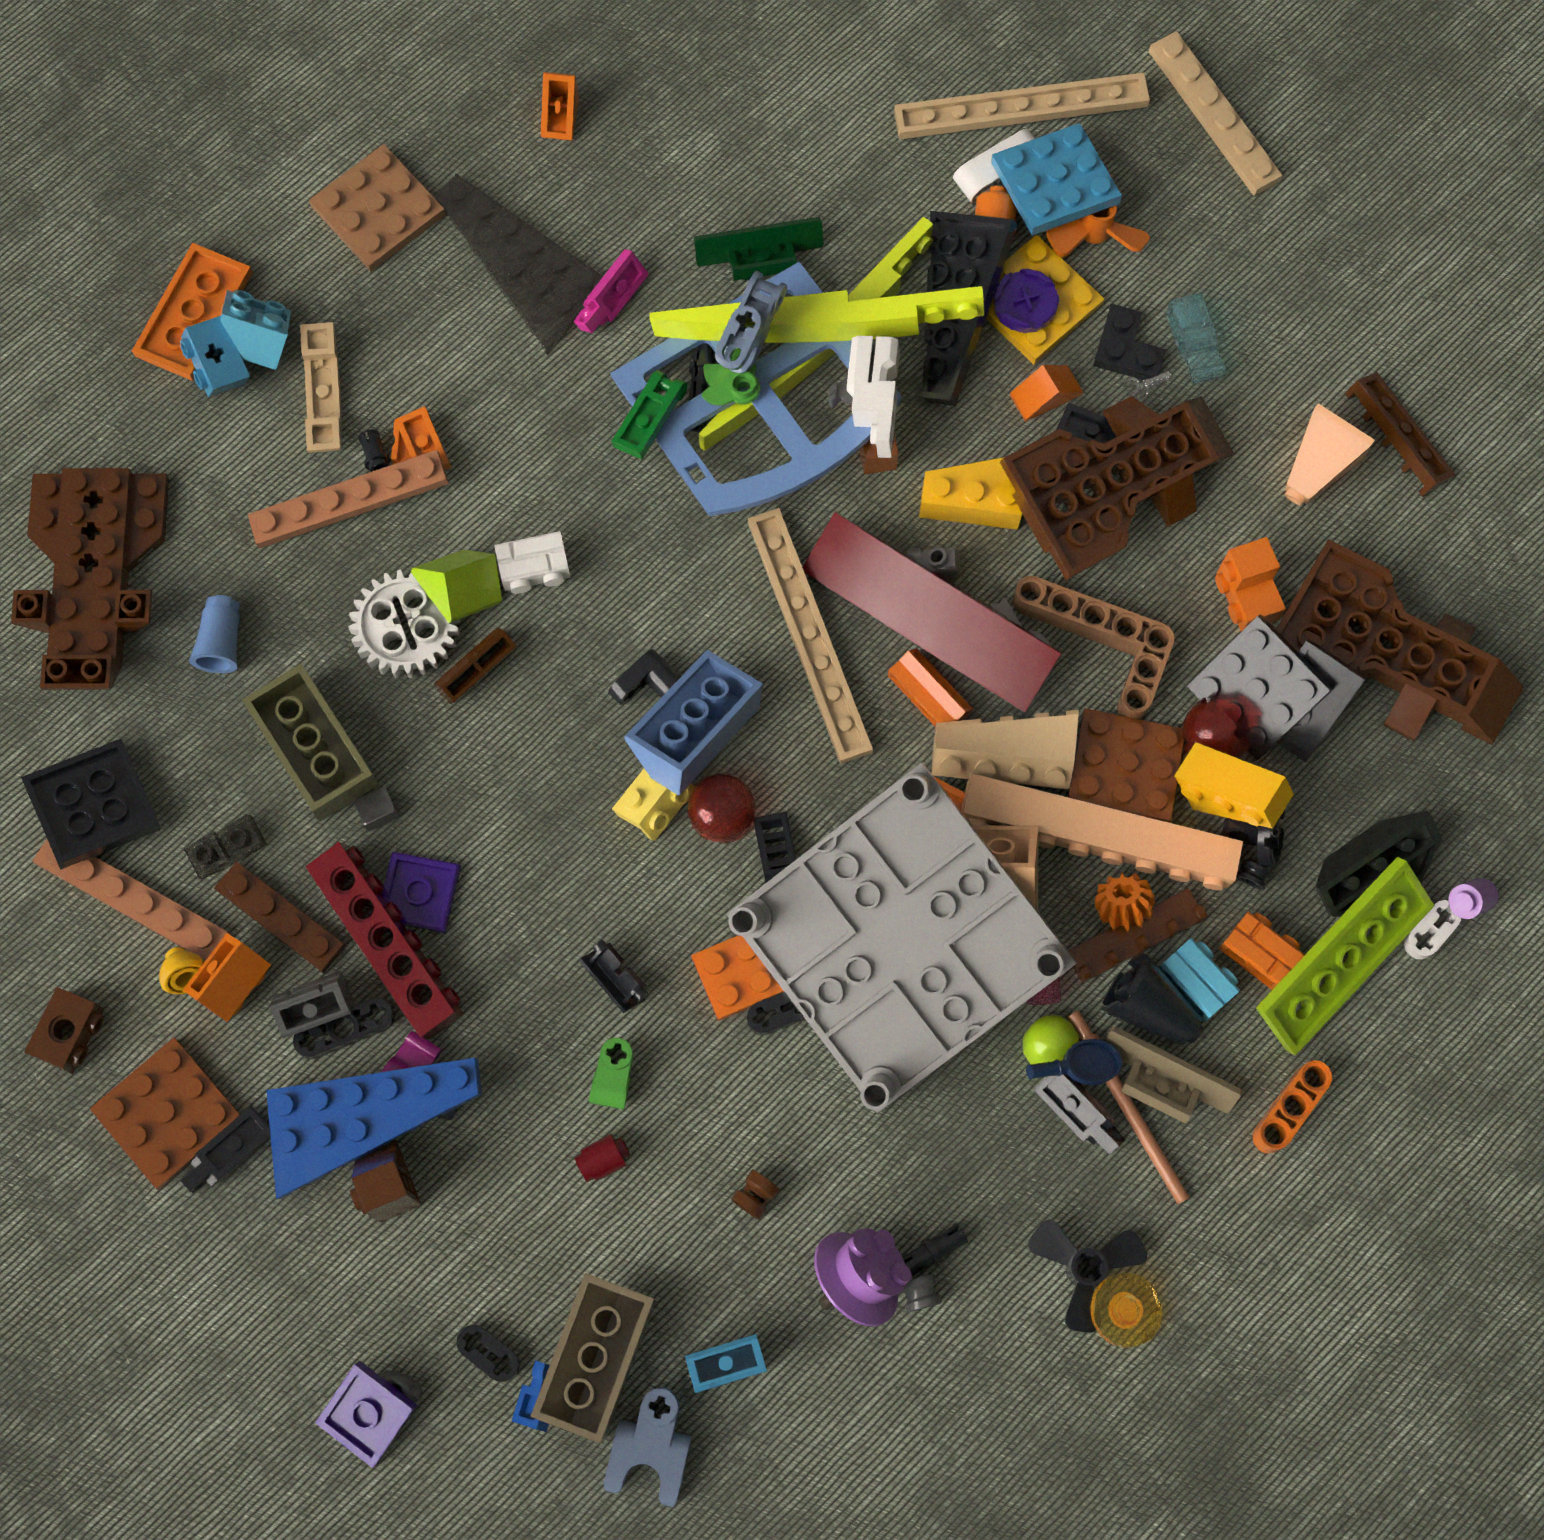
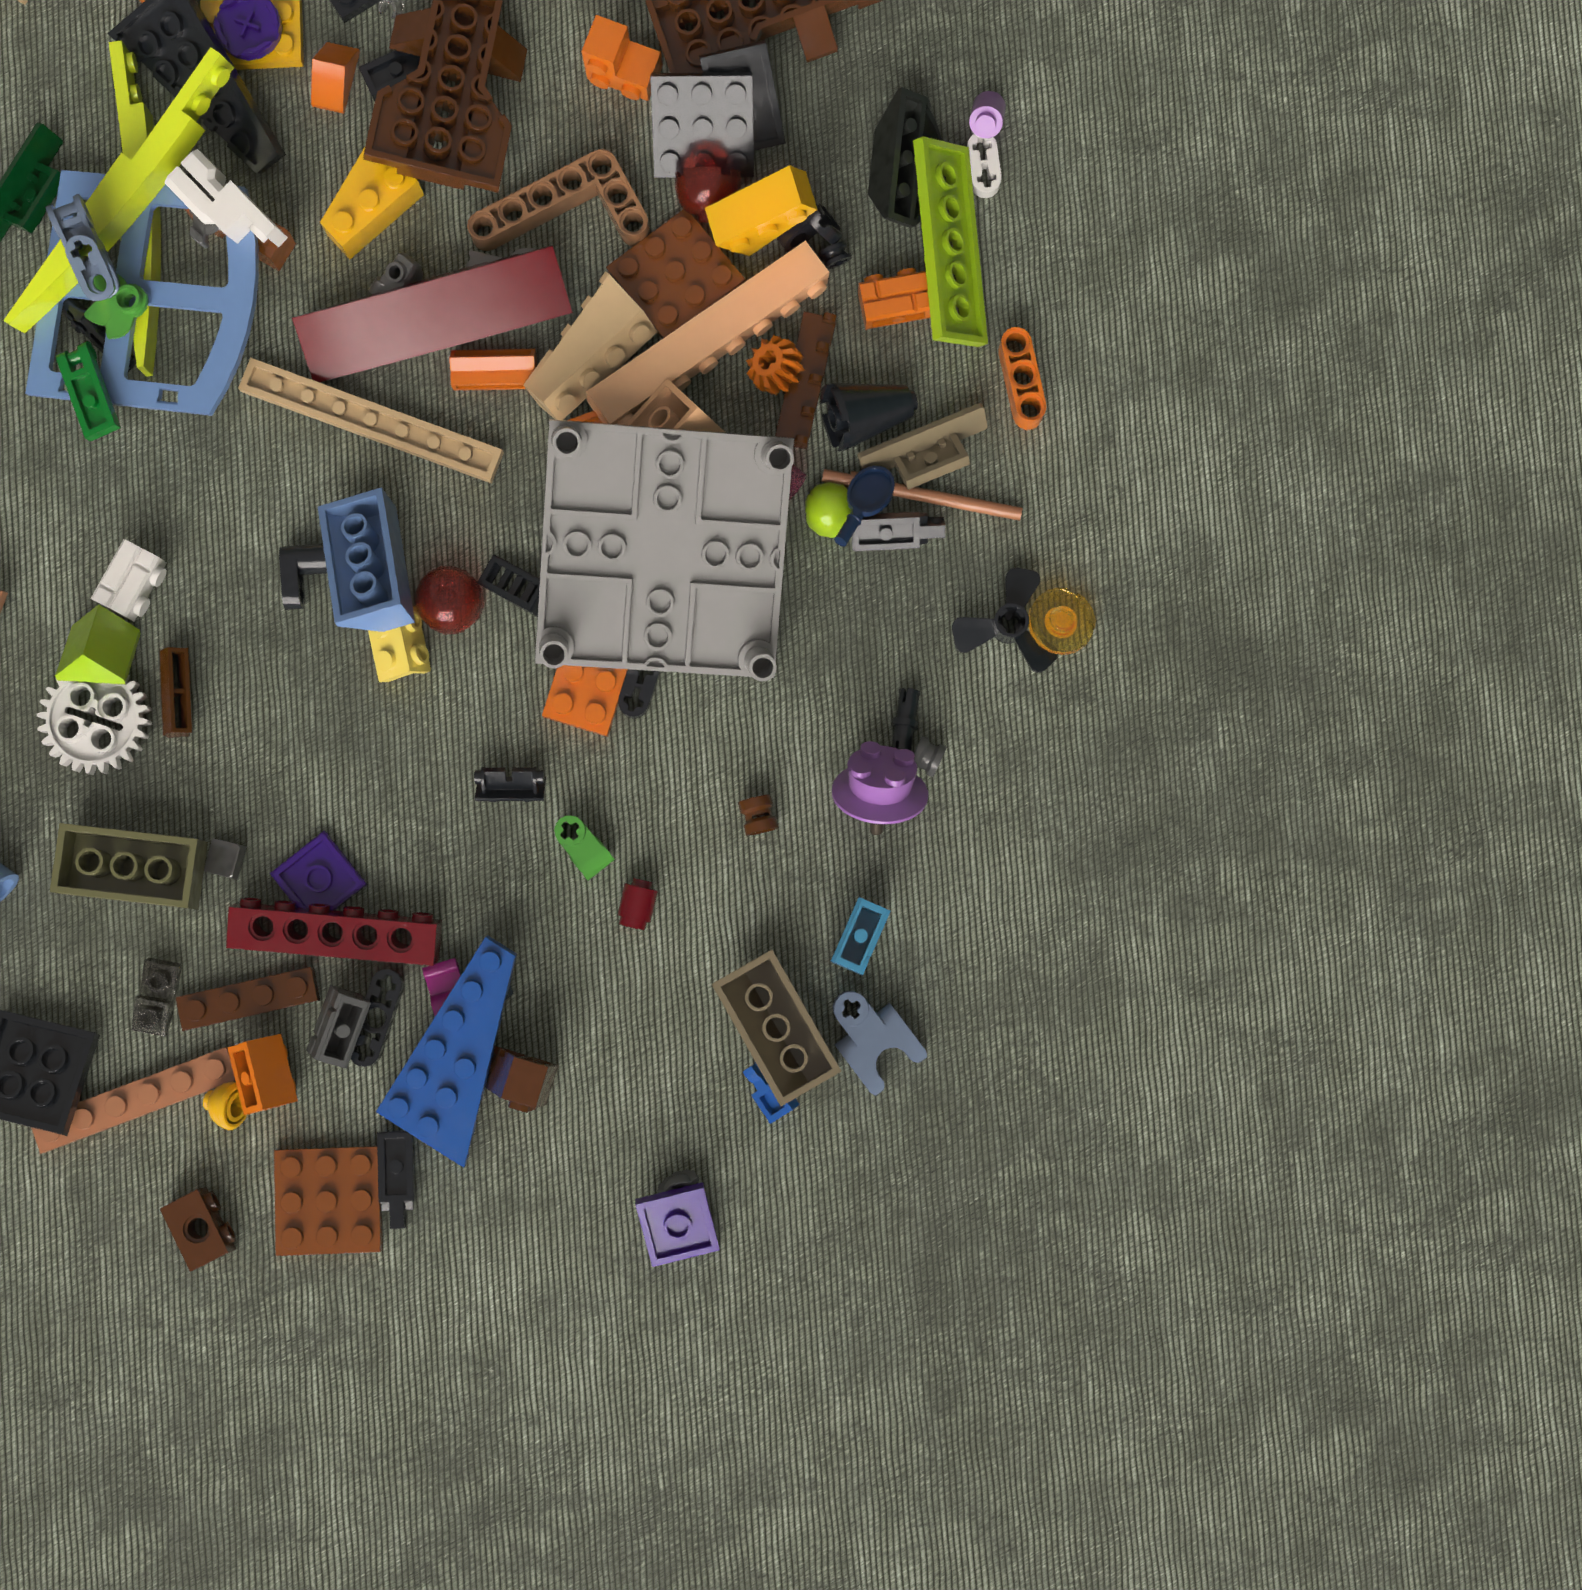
camera: 50 degrees left, 10 degrees up
(482, 1360) = (705, 1093): black beam -> none
(1200, 978) = (876, 360): medium azure brick -> none

